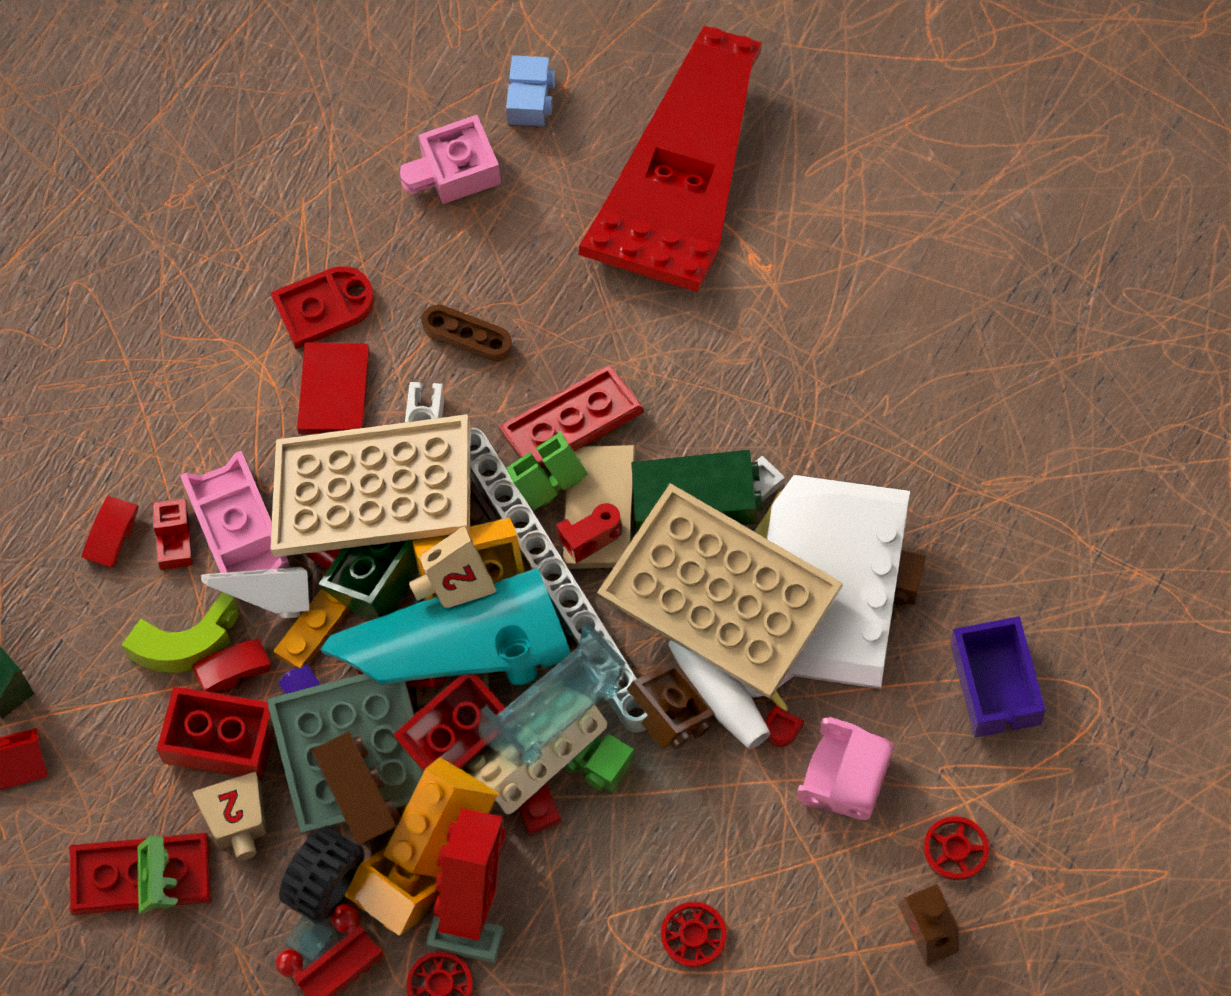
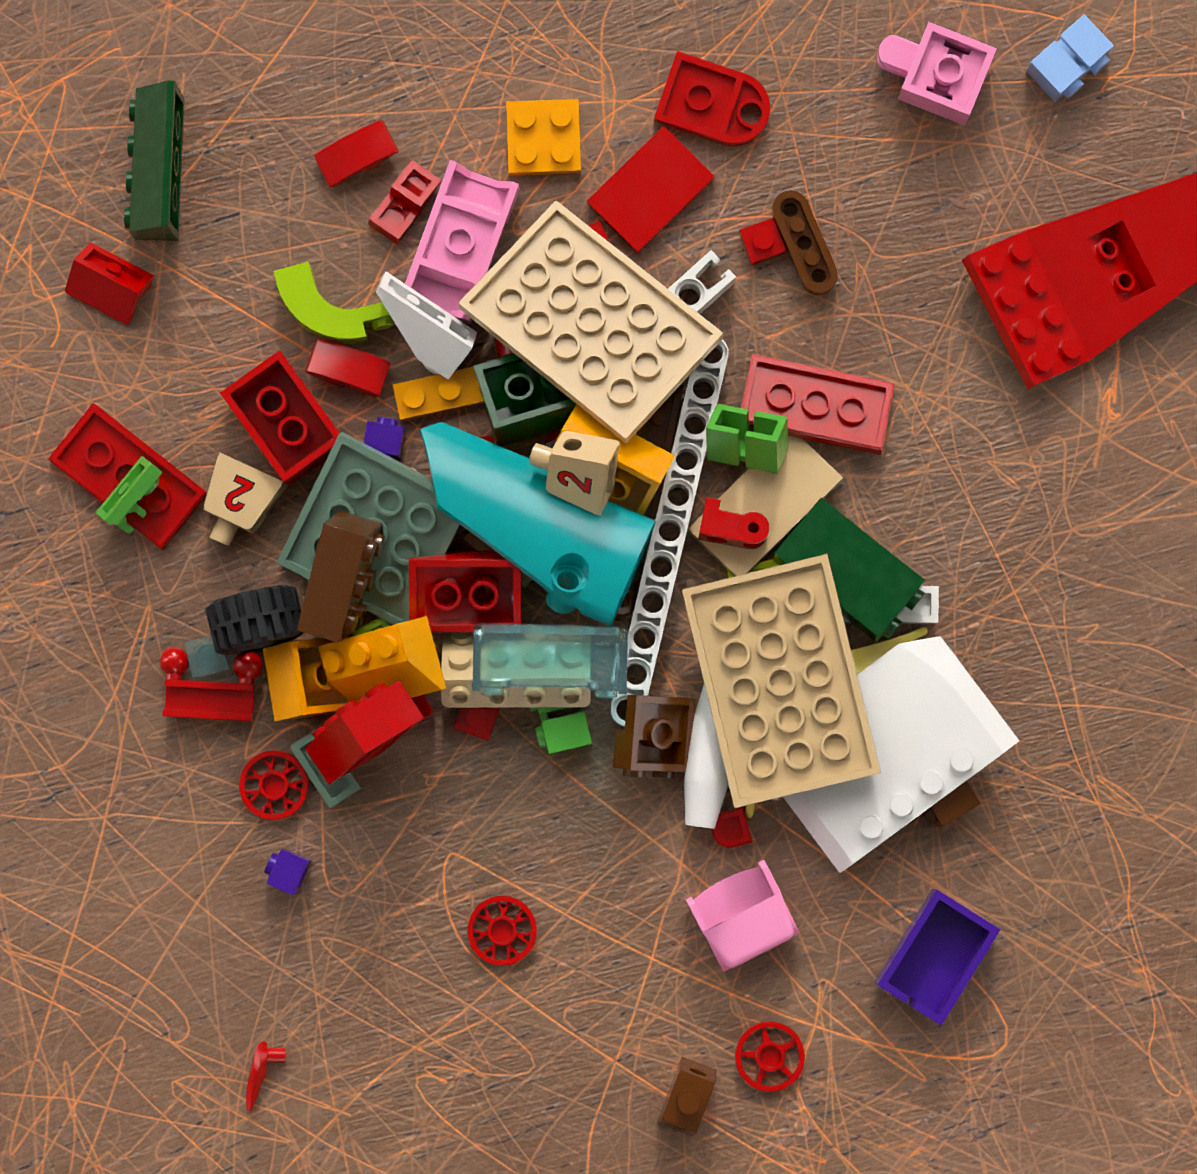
camera: 40 degrees right, 20 degrees up
(230, 417) = (543, 137): none -> light orange plate
(438, 356) = (762, 241): none -> red plate

